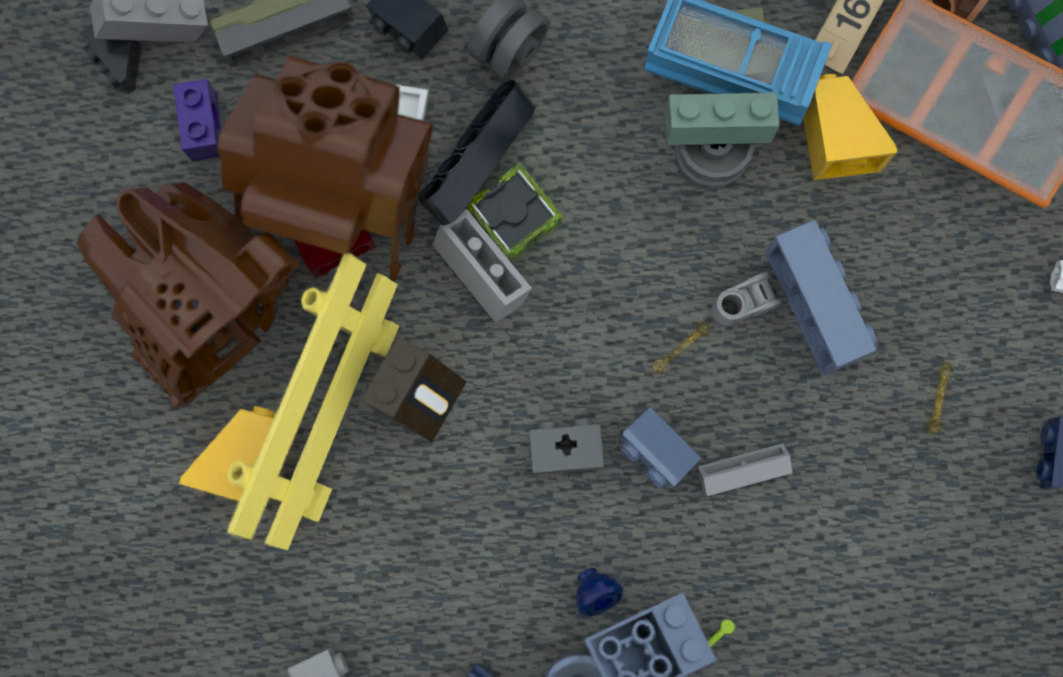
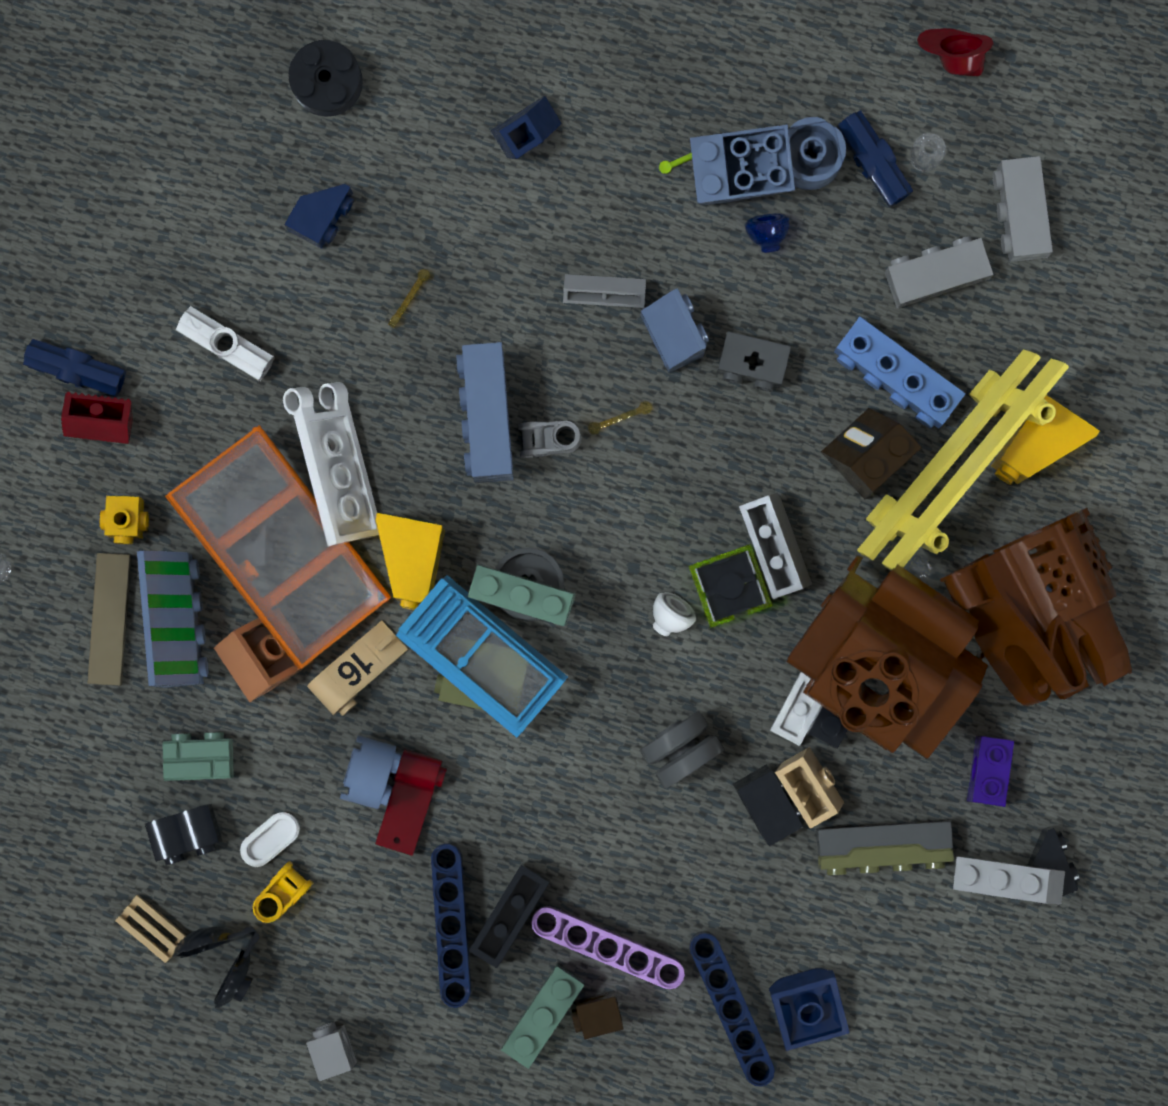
camera: 165 degrees left, 5 degrees up
(371, 45) = (810, 787): none -> tan brick
(402, 609) = (938, 271): none -> light grey brick
(411, 486) = (898, 373): none -> medium blue brick
(476, 153) = (746, 647): black beam -> none
(561, 169) = (672, 614): none -> white brick
(889, 616) = (526, 128): none -> dark blue slope
(944, 182) = (338, 473): none -> white hinge

